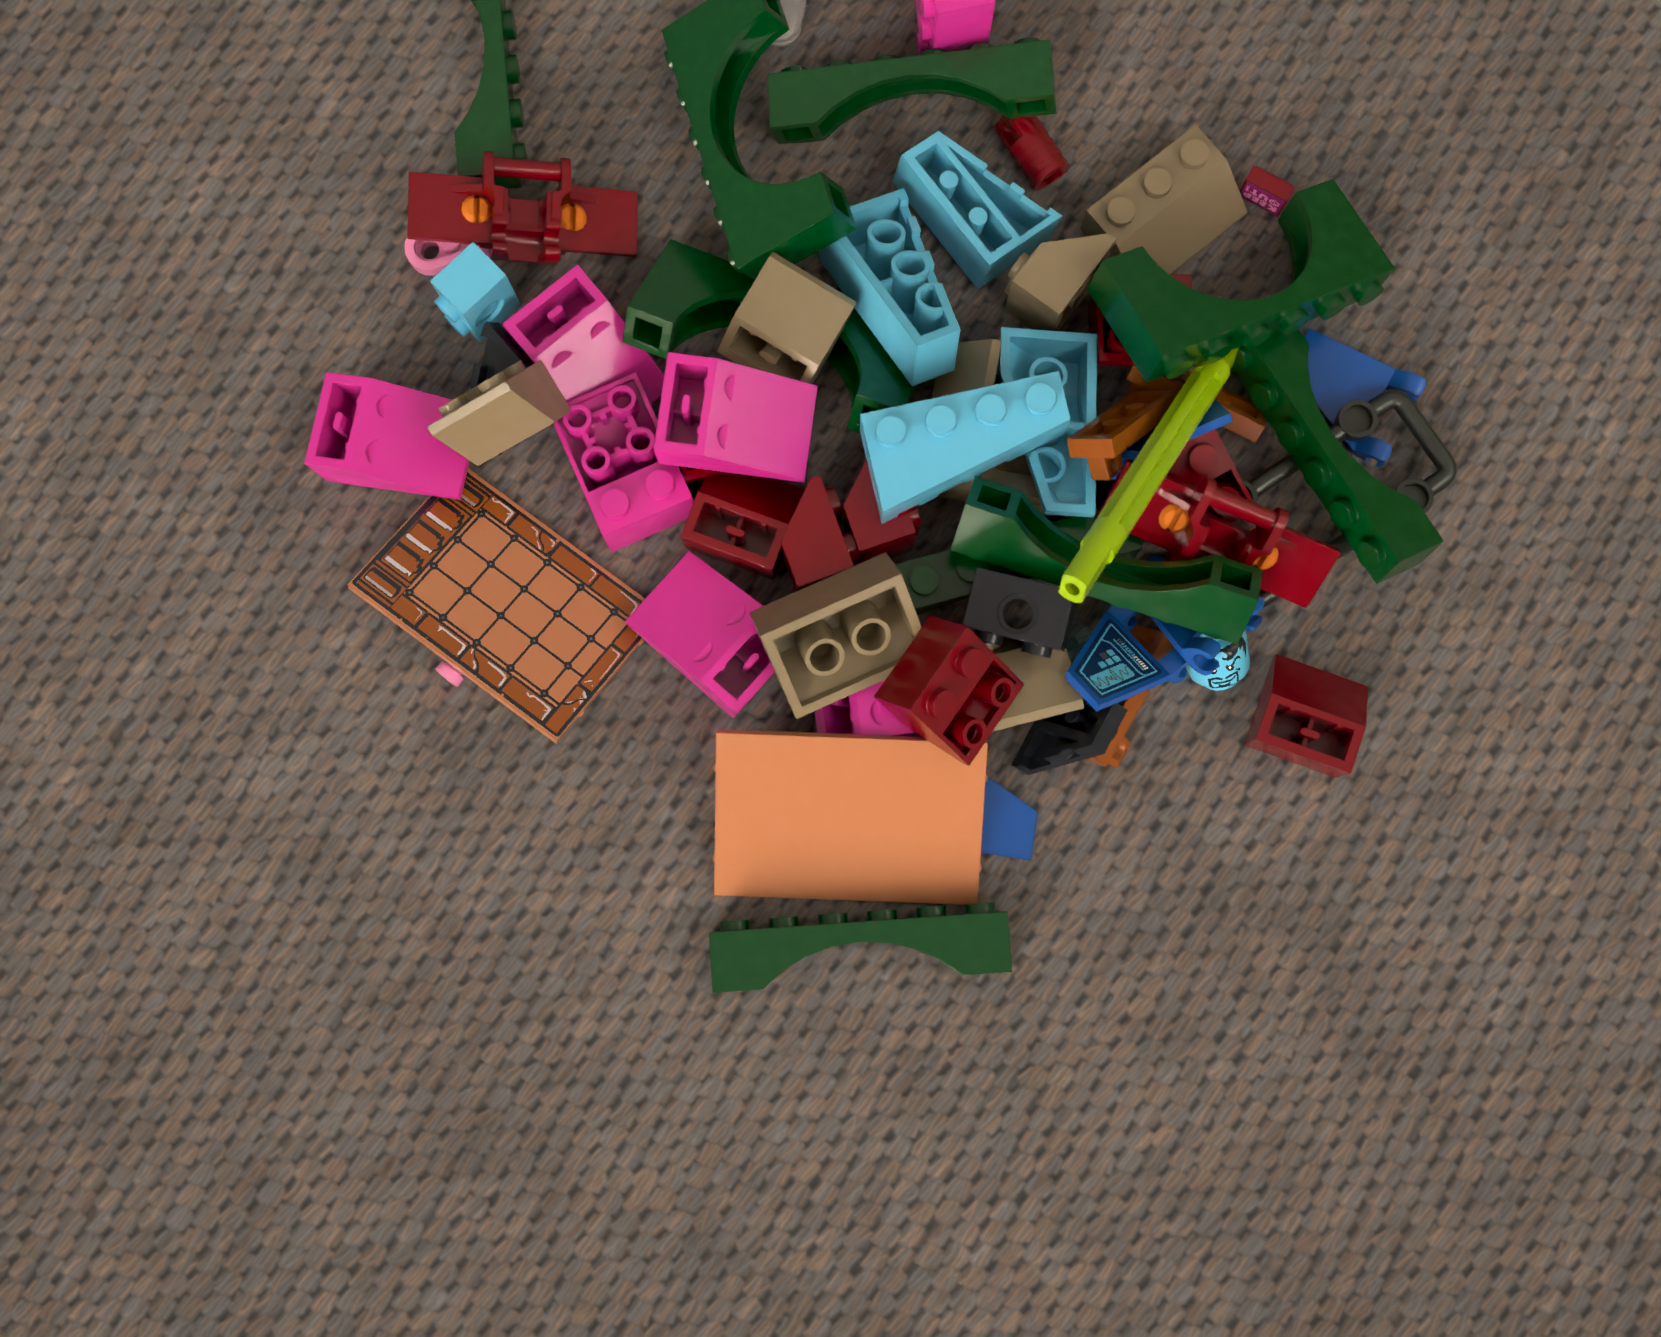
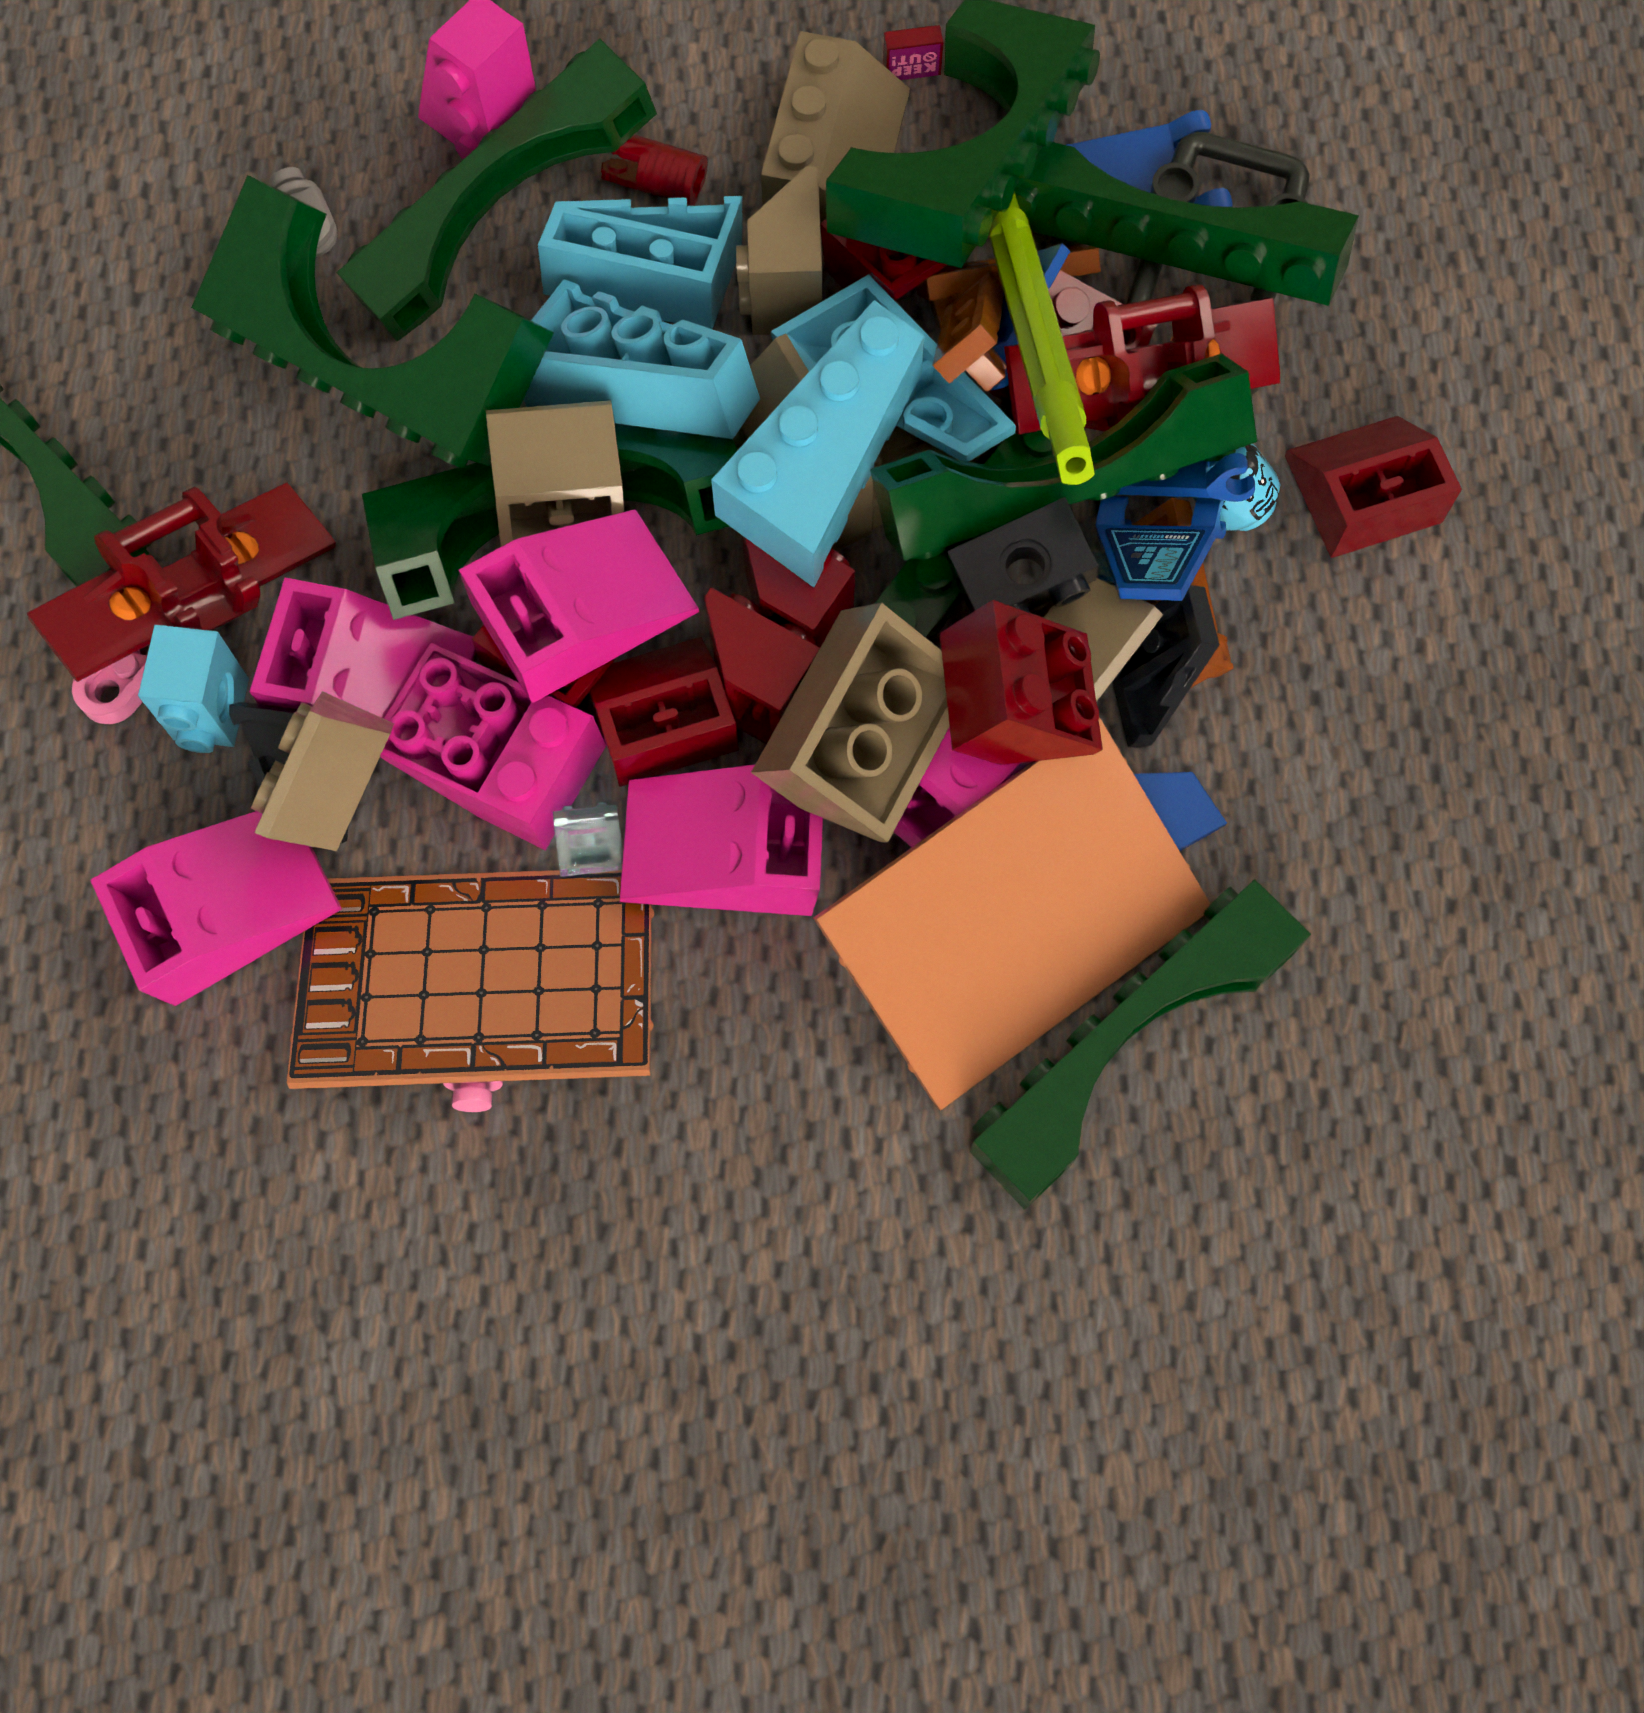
camera: 40 degrees left, 10 degrees down
(637, 567) = (588, 839): none -> clear light blue tile

